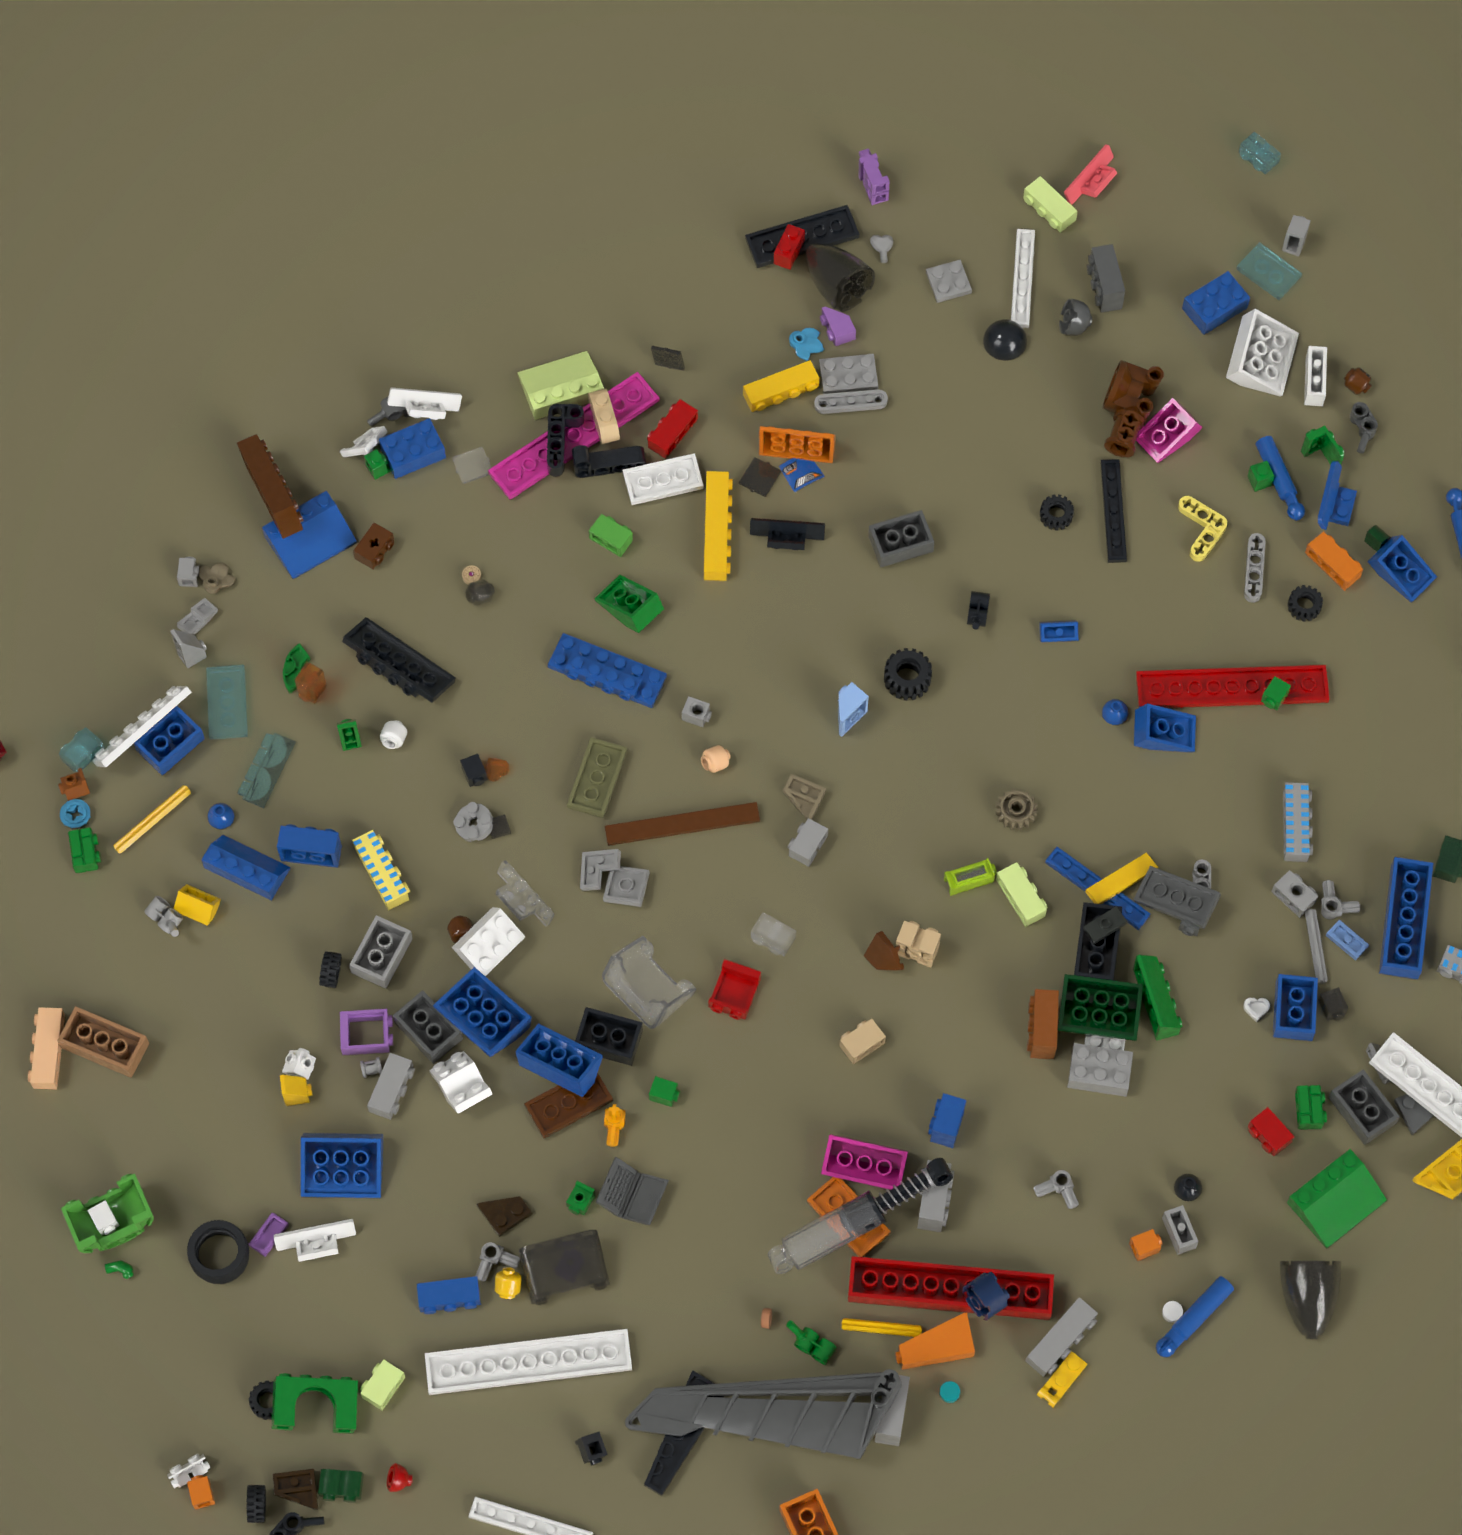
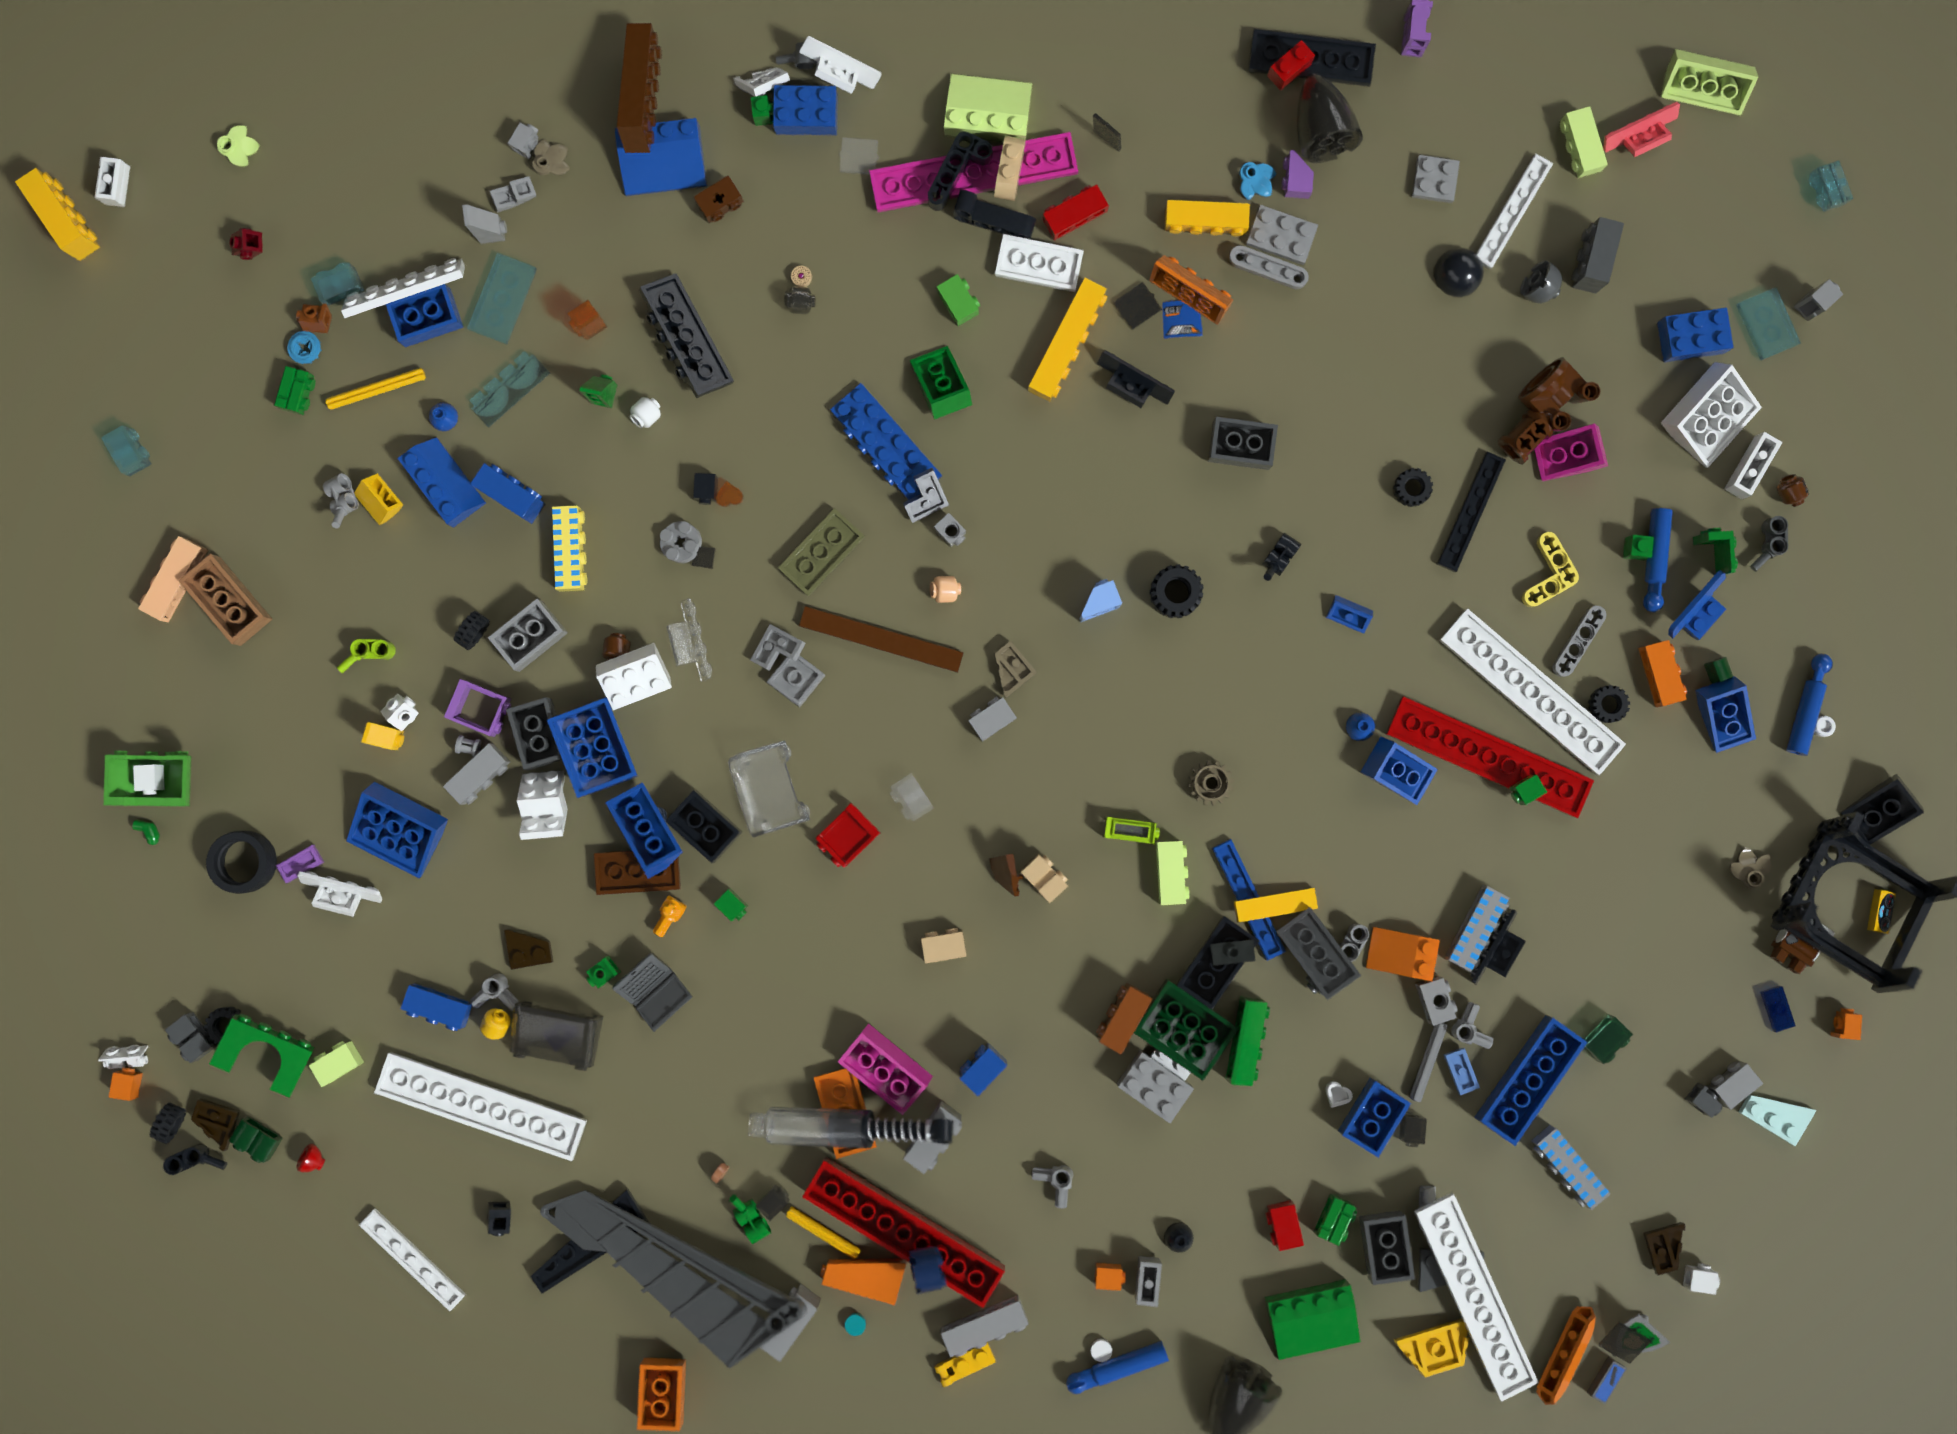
camera: 25 degrees right, 20 degrees up
(243, 1425) = (191, 1037): none -> dark grey piece
(249, 1023) = (372, 652): none -> lime beam
(293, 664) = (585, 290): green tile -> none
(667, 694) = (931, 497): none -> flat silver plate
(825, 1320) = (773, 1202): none -> clear smoke brick
(882, 245) = (1388, 106): light grey rock -> none
(1122, 121) = (1708, 82): none -> yellowish green slope
(1238, 622) = (1532, 692): none -> white plate
(1247, 869) = (1402, 953): none -> orange slope
(1327, 830) = (1503, 951): none -> black bracket

